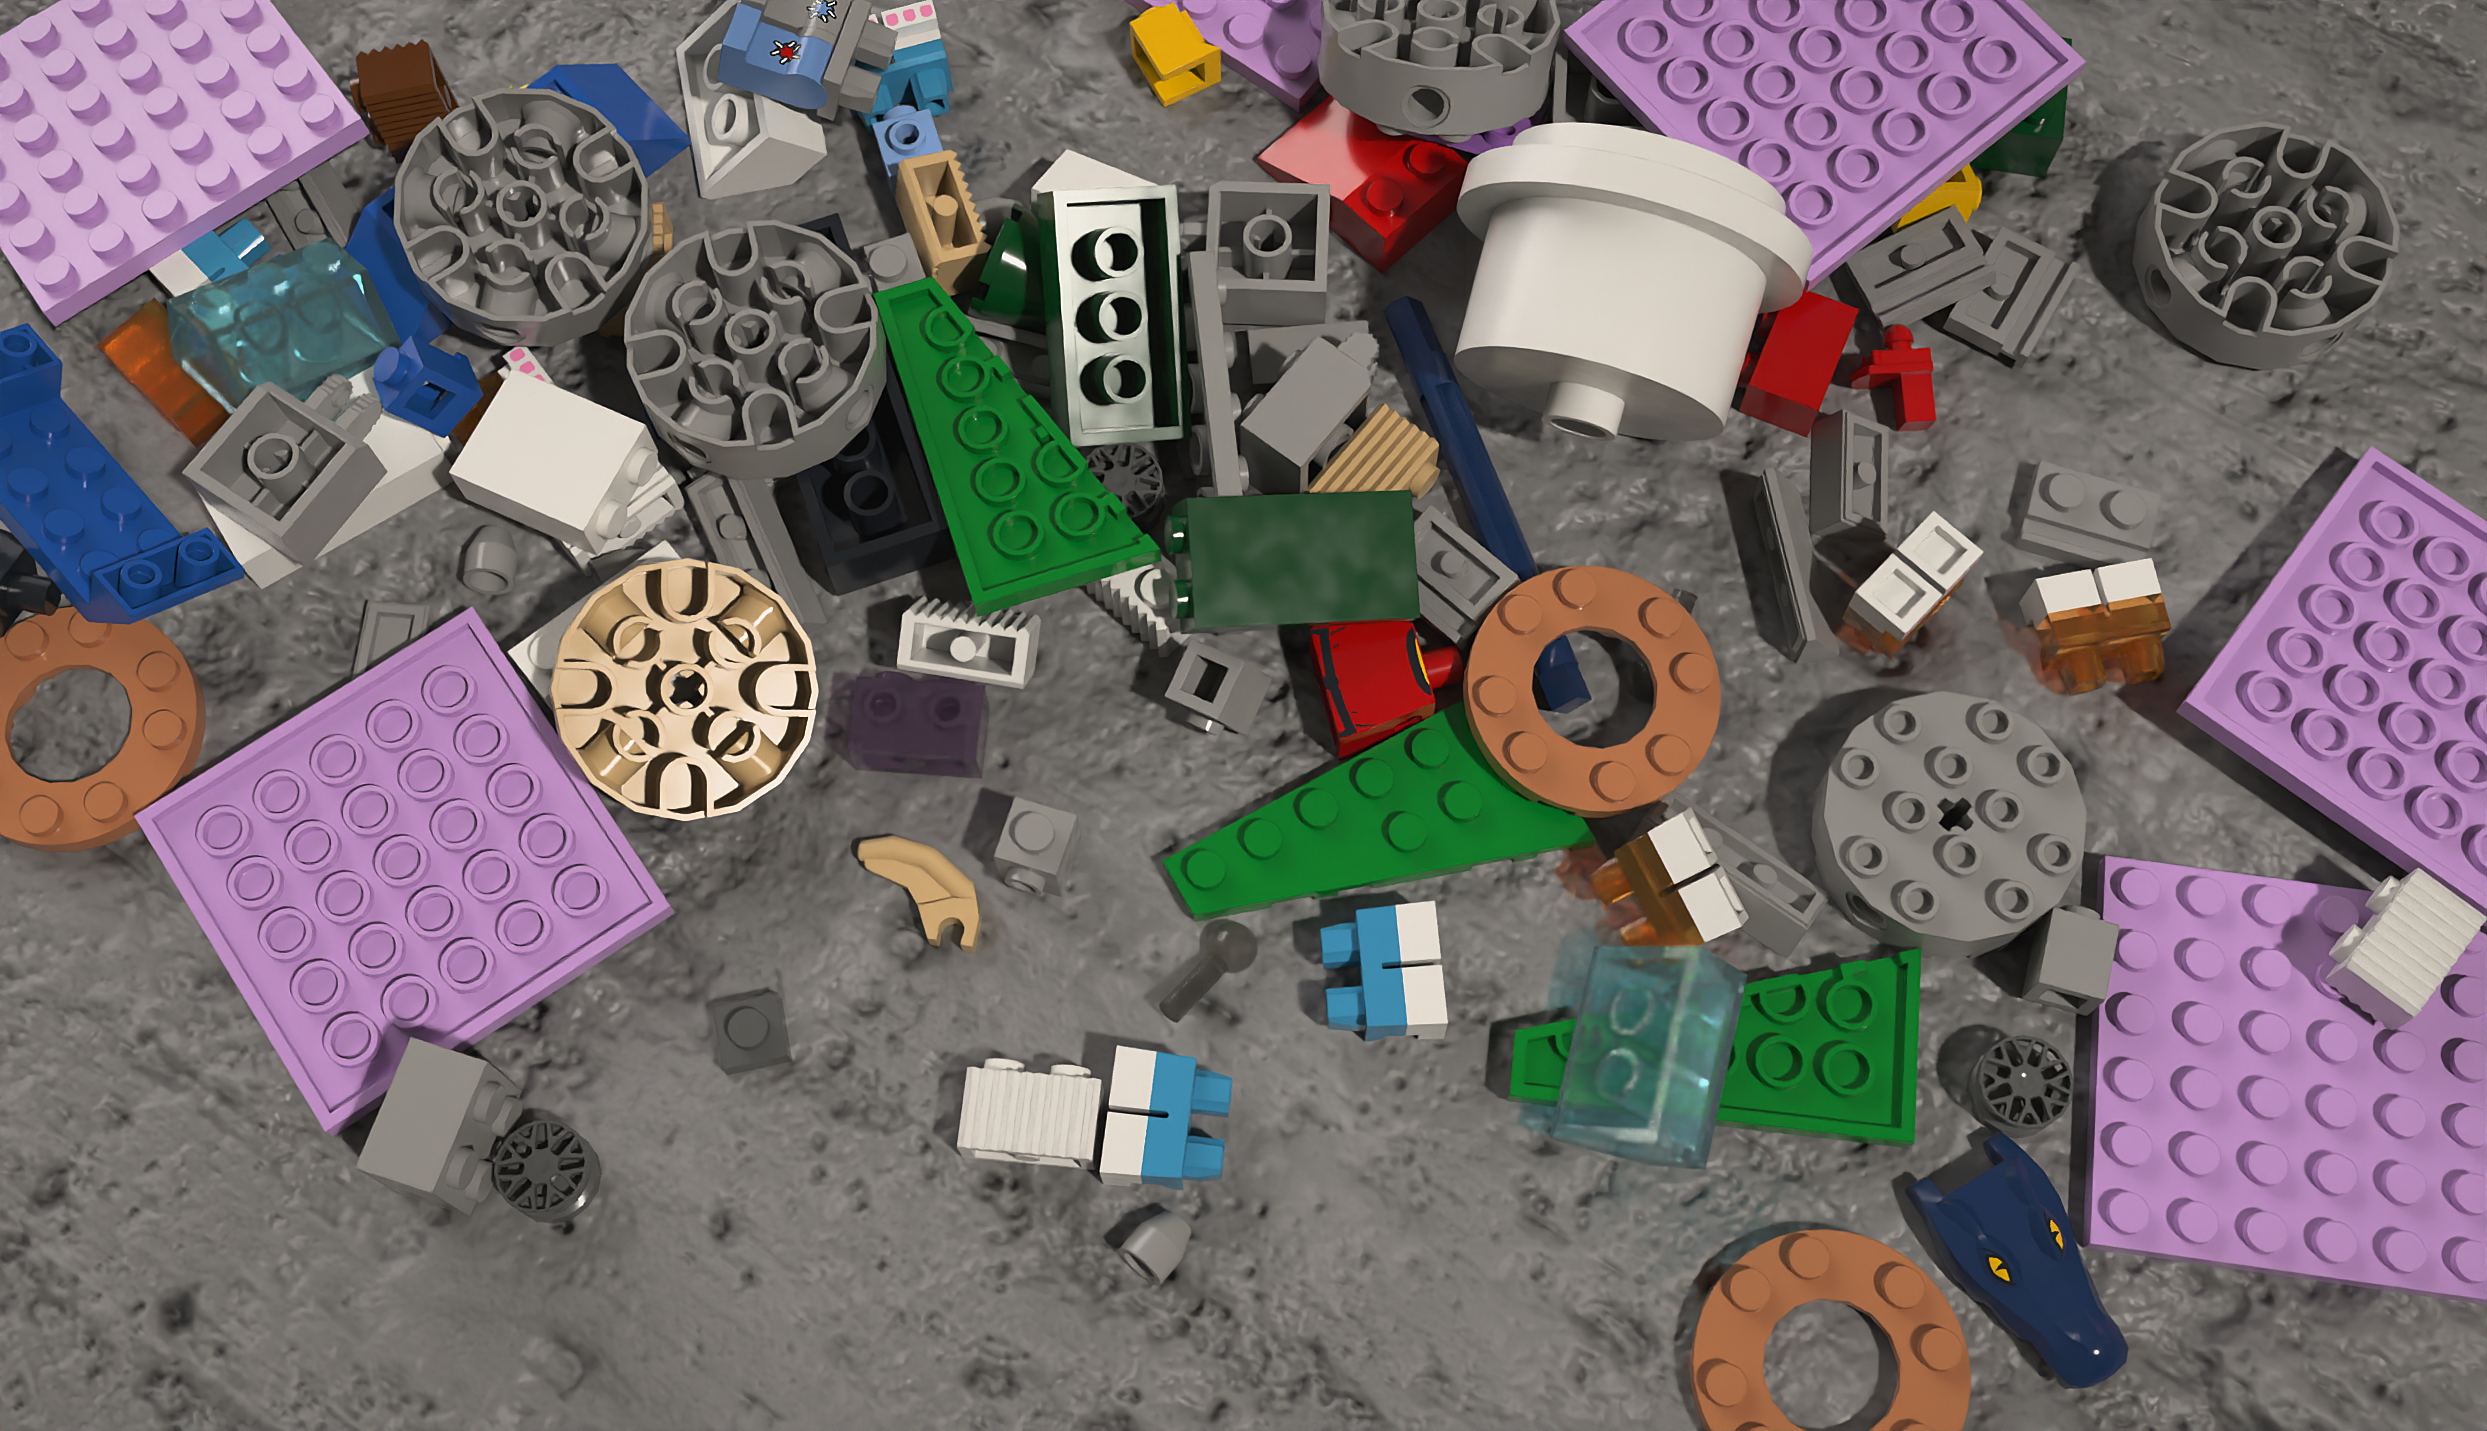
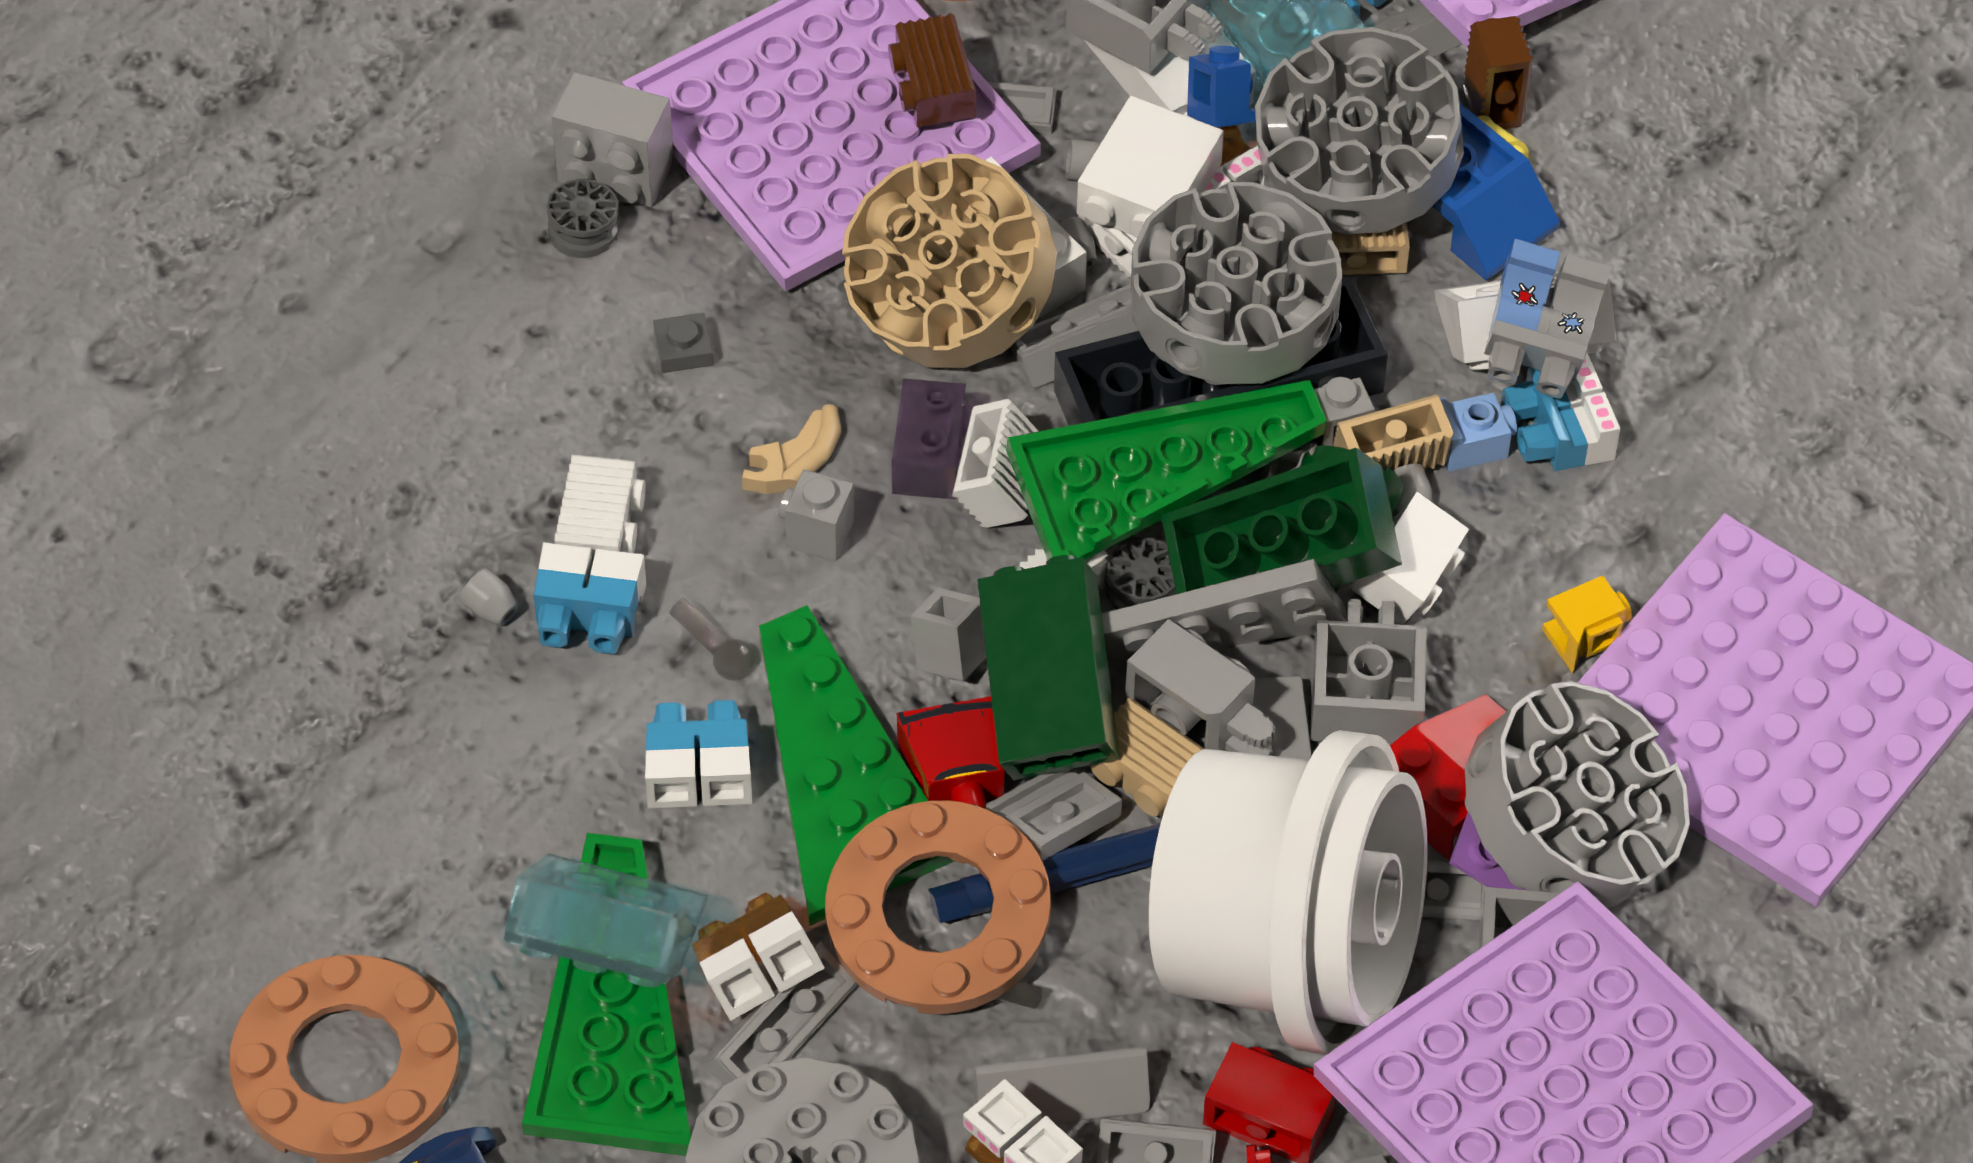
camera: 90 degrees right, 15 degrees down
(360, 724) = (933, 70): none -> reddish brown brick

